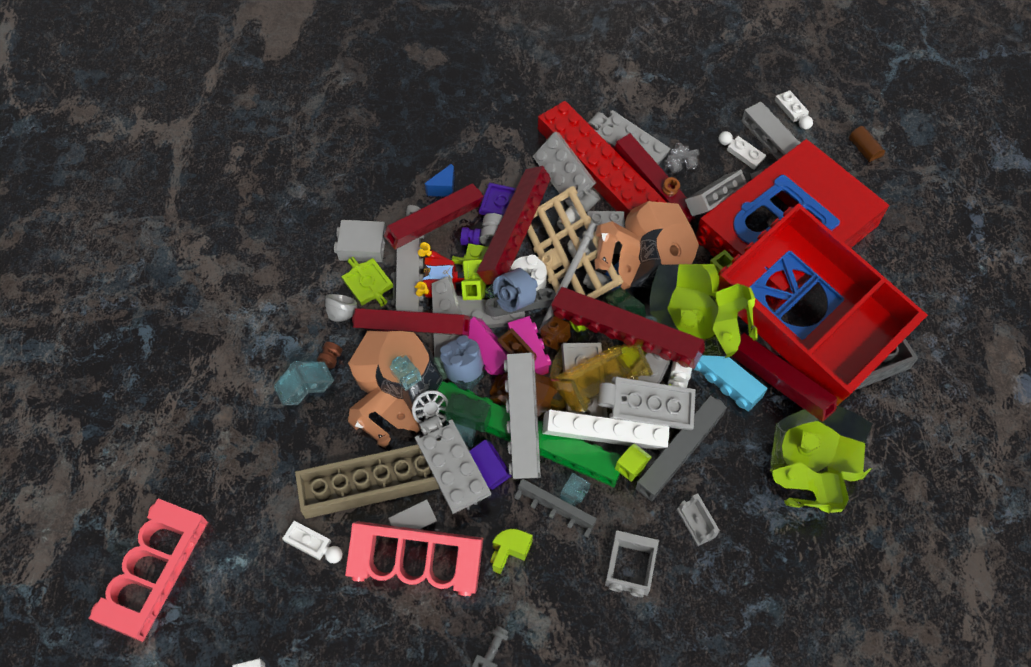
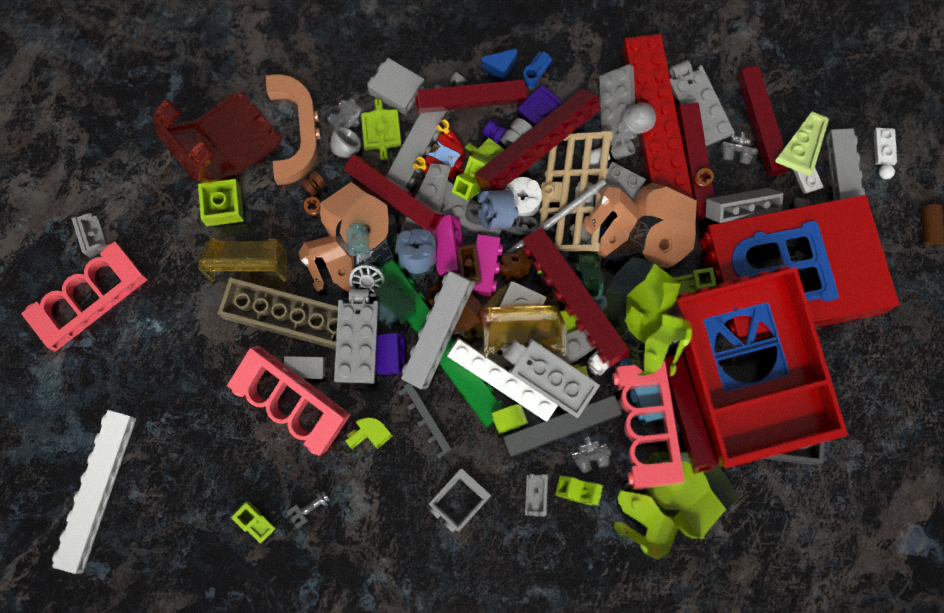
camera: 30 degrees right, 15 degrees up
(126, 507) = (89, 234): none -> light grey hinge
(220, 357) = (220, 141): none -> clear red windscreen
(248, 412) = (220, 202): none -> lime brick
(270, 286) = (302, 162): none -> nougat arch
(297, 445) = (243, 256): none -> clear yellow windscreen
(302, 379) = (278, 196): clear light blue brick -> none
(312, 543) = (217, 342): white plate -> none
(329, 283) = (347, 116): none -> clear hips
(342, 380) = (312, 200): none -> dark orange bush
(477, 172) = (536, 69): none -> blue piece
(575, 490) = (448, 414): clear light blue brick -> none
(590, 164) = (639, 118): none -> light grey hat
(687, 129) = (762, 118): none -> dark red brick
(729, 453) = (590, 452): none -> clear hips
(732, 130) = (805, 145): none -> yellowish green wing
(733, 495) = (578, 490): none -> lime brick
(779, 445) = (653, 474): none -> coral fence

